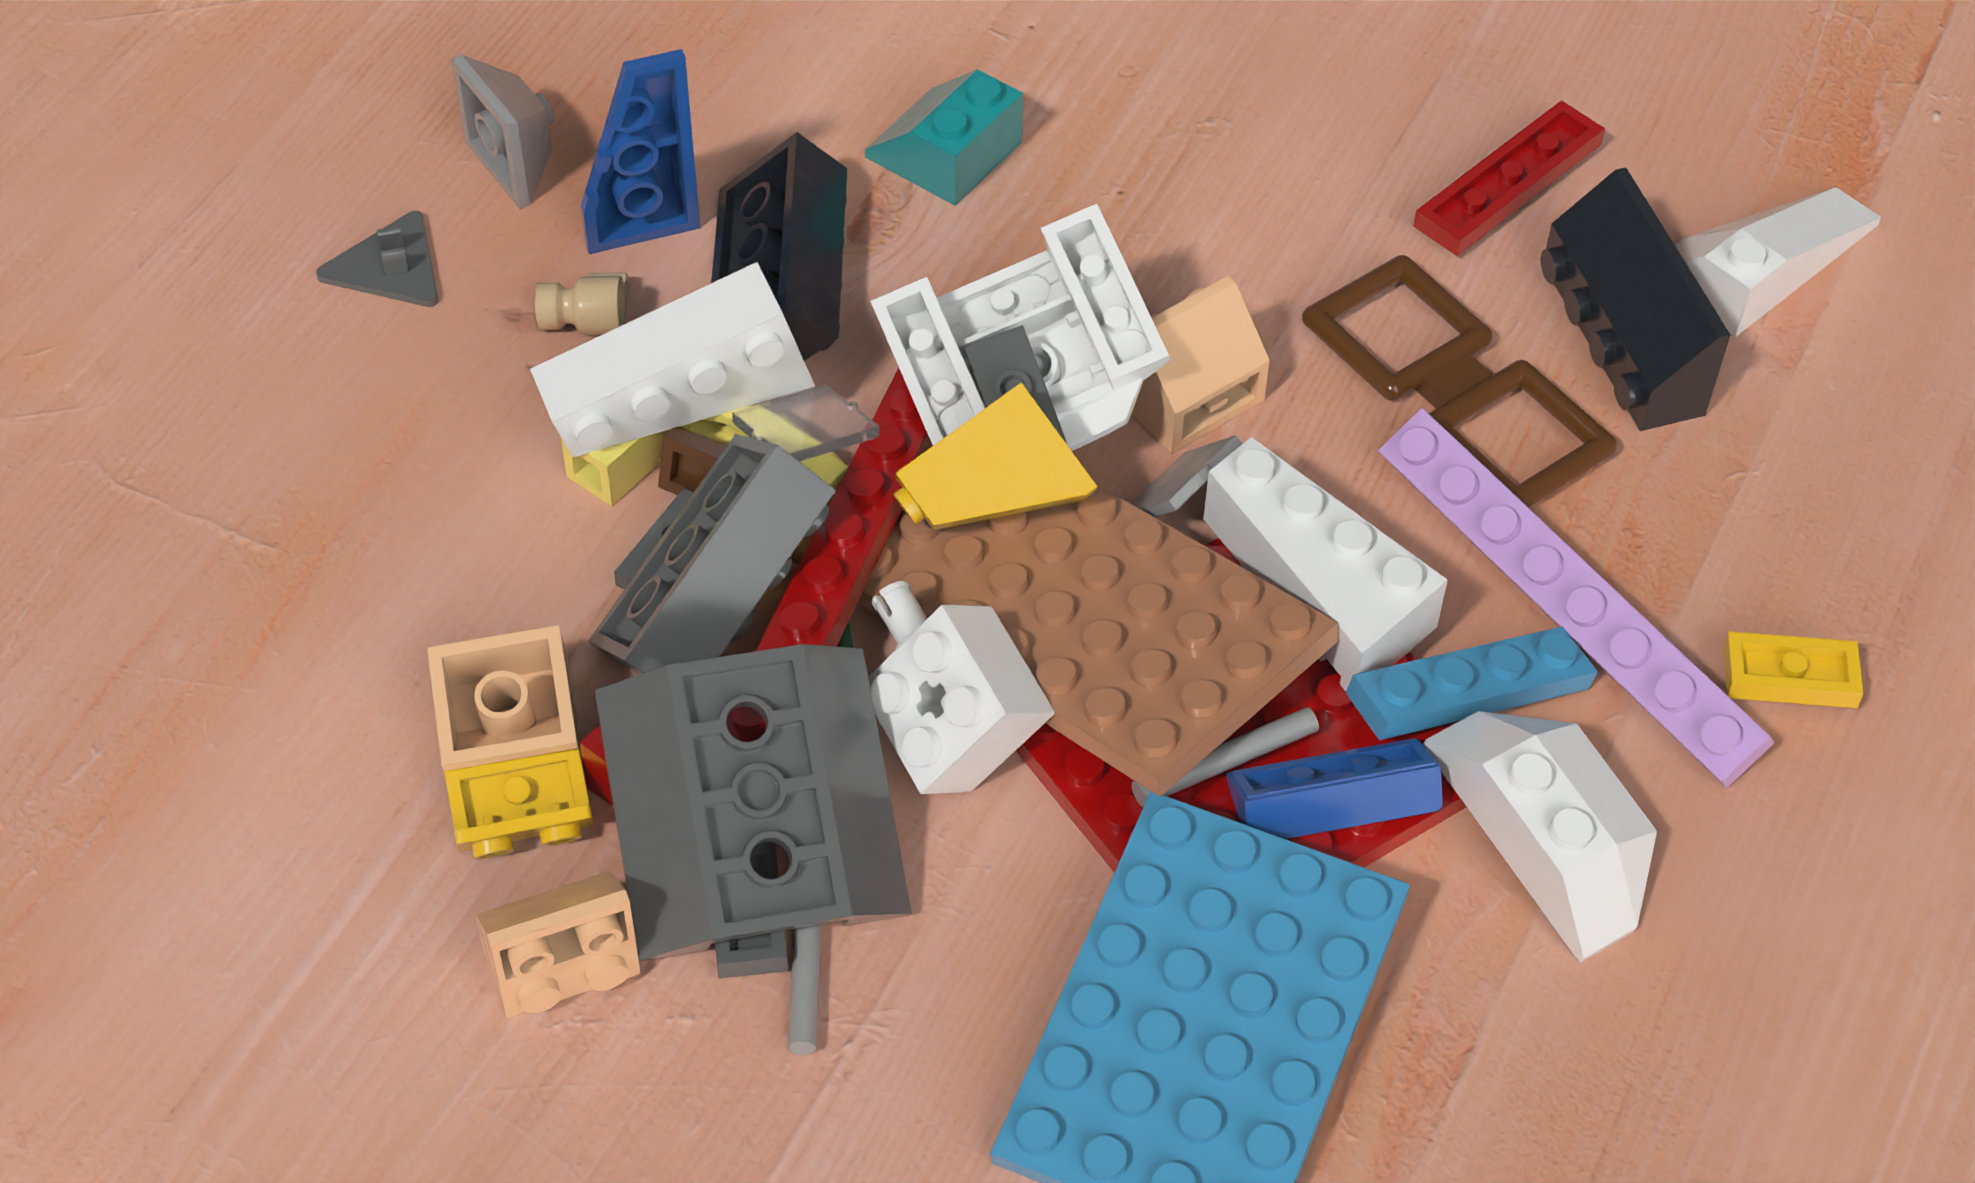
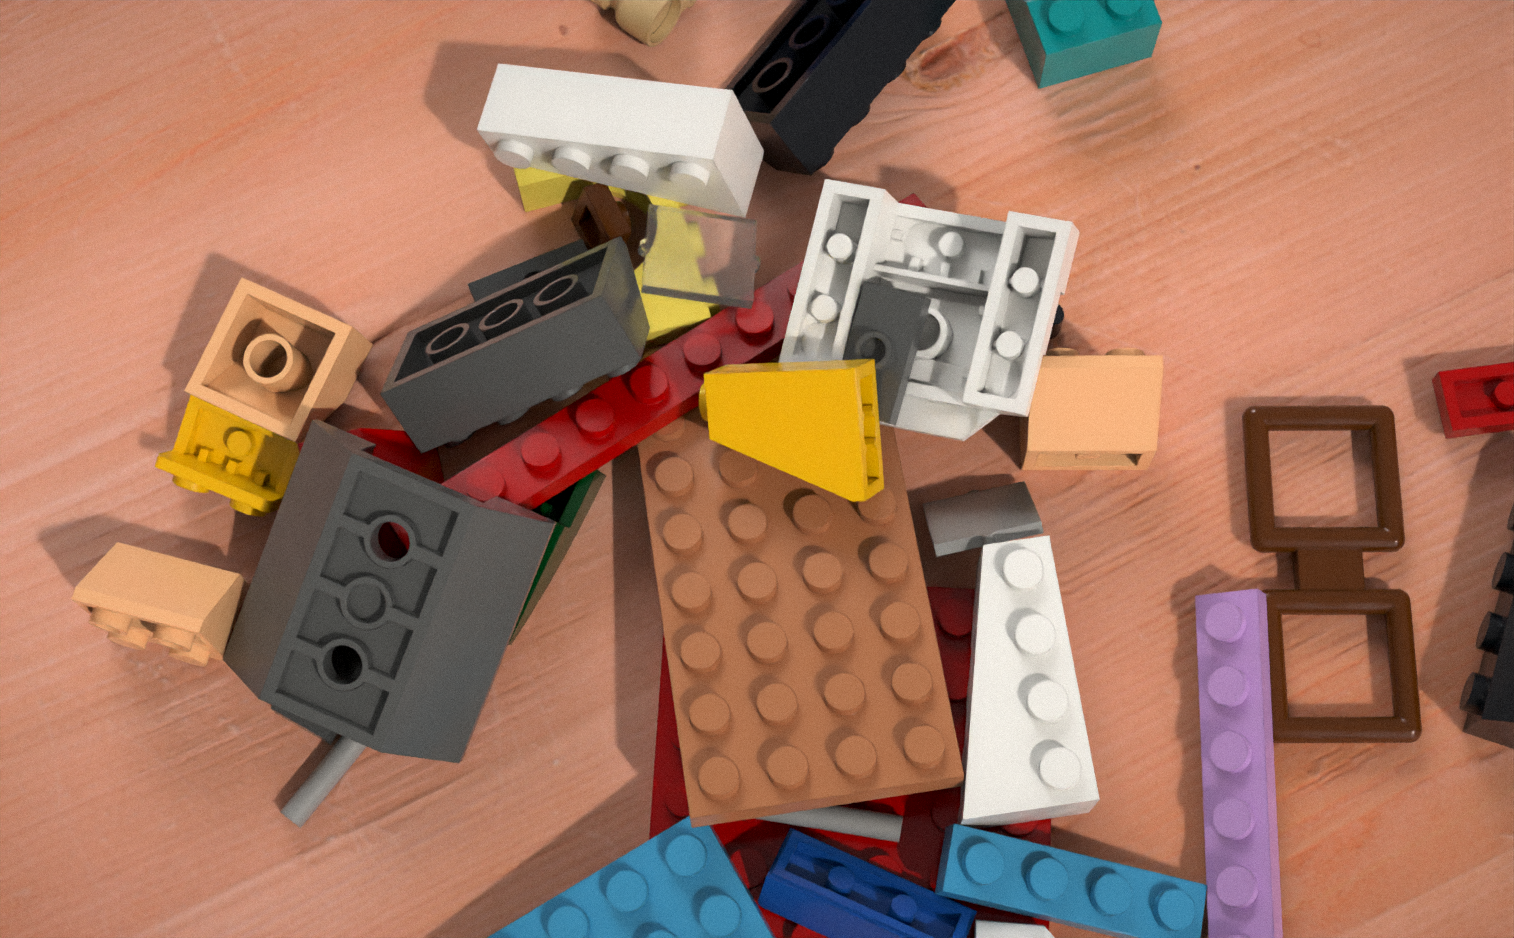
camera: 40 degrees right, 20 degrees up
(952, 692) = (613, 600): white brick -> none

